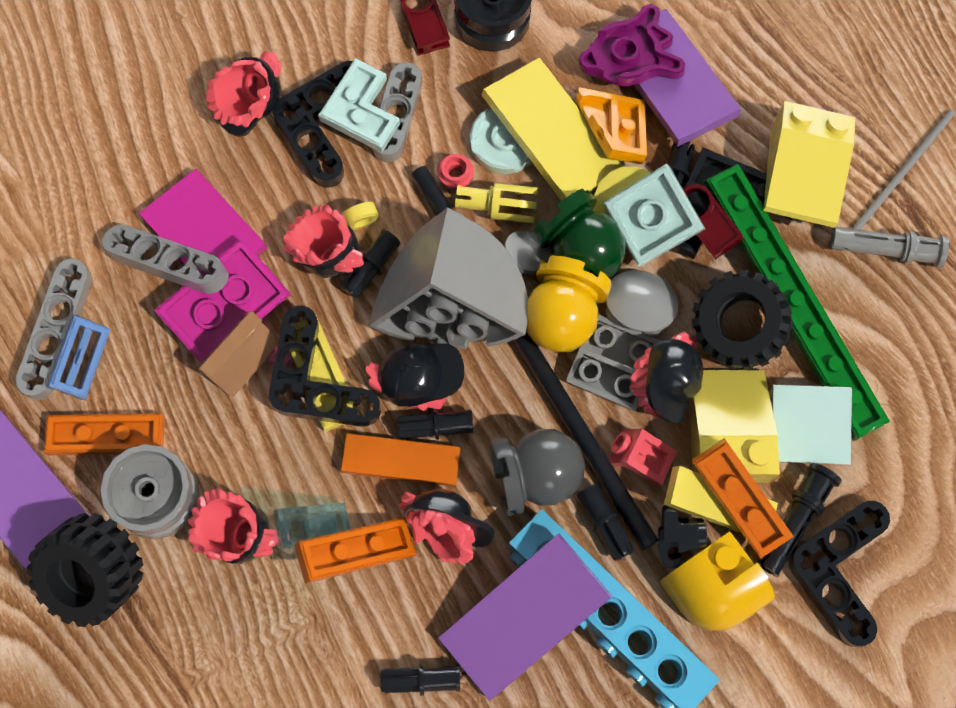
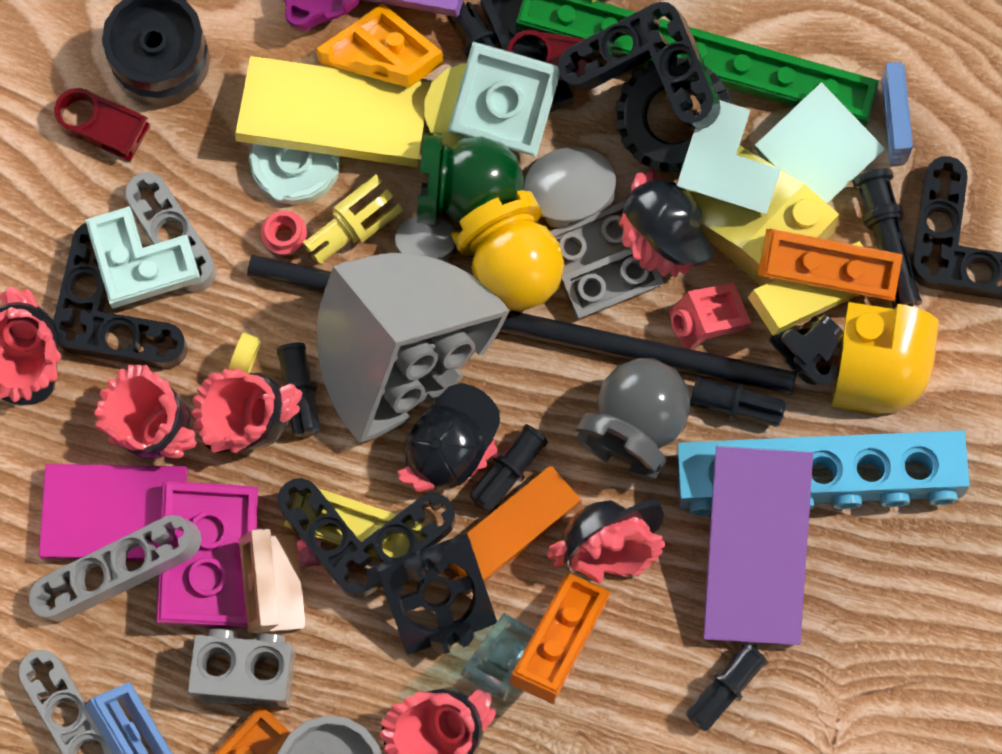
camera: 40 degrees left, 0 degrees up
(165, 388) = (239, 682): none -> light grey brick
(270, 192) = (144, 415): none -> coral hair
(329, 431) = (428, 566): none -> black piece
(732, 374) = (718, 172): none -> light aqua tile
(767, 264) = (647, 45): none -> black beam
(880, 451) = (896, 113): none -> medium blue tile

